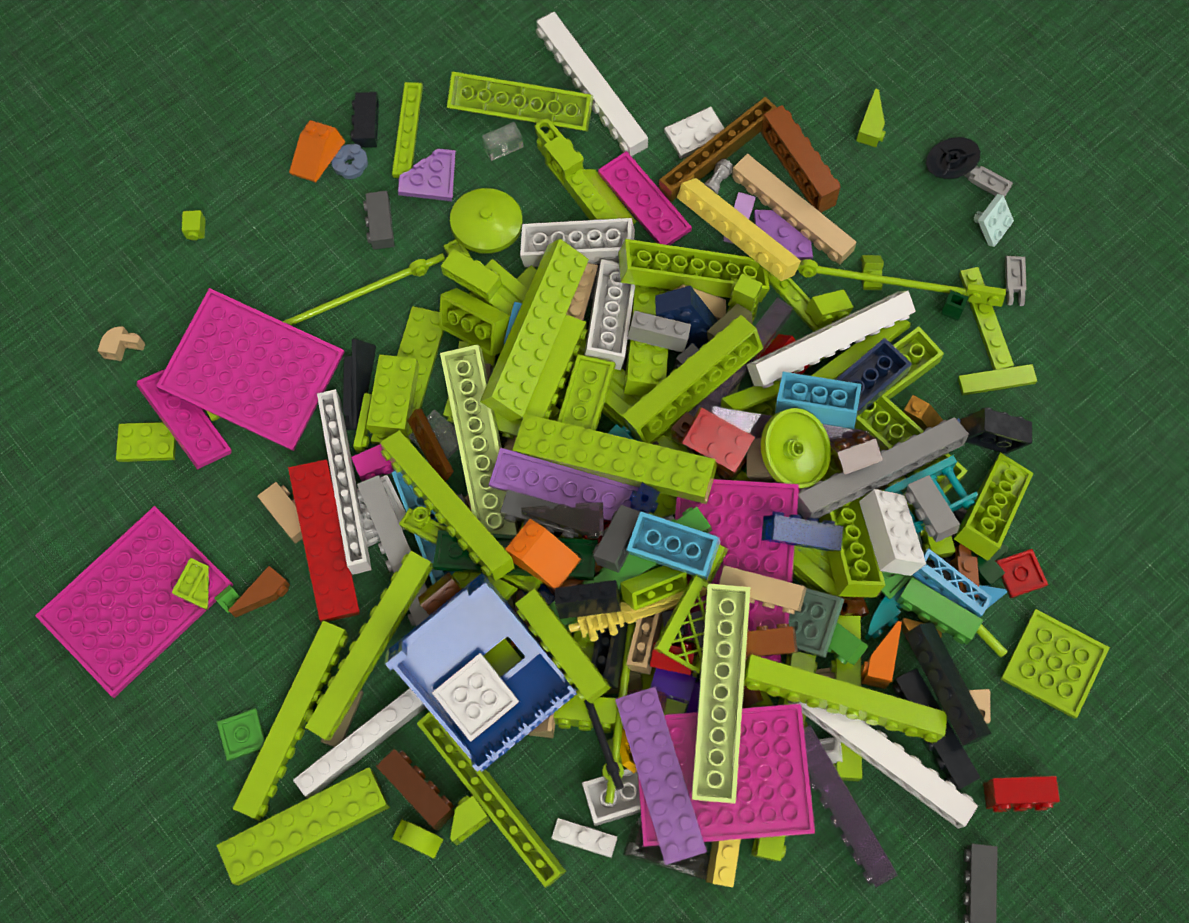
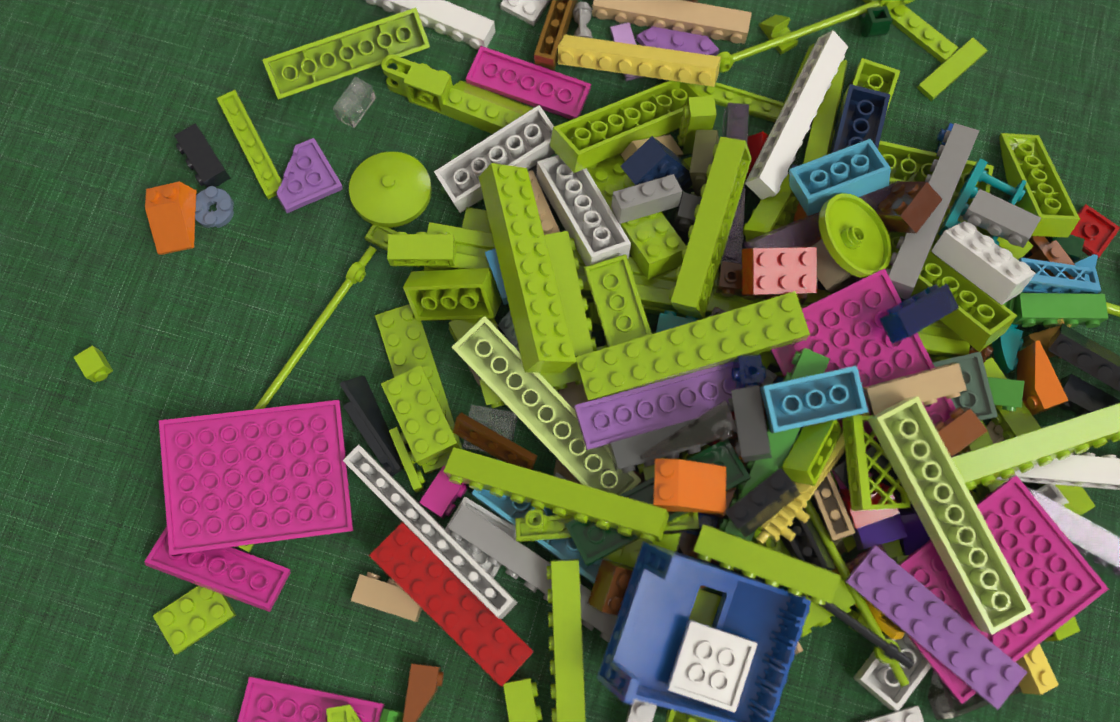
camera: 35 degrees left, 5 degrees up
(116, 340) = (91, 534): tan brick -> none
(379, 220) = (283, 249): dark grey brick -> none
(829, 307) = (768, 87): lime brick -> none
(922, 413) = (913, 136): pearl gold slope -> none
(997, 430) = (995, 112): black brick -> none

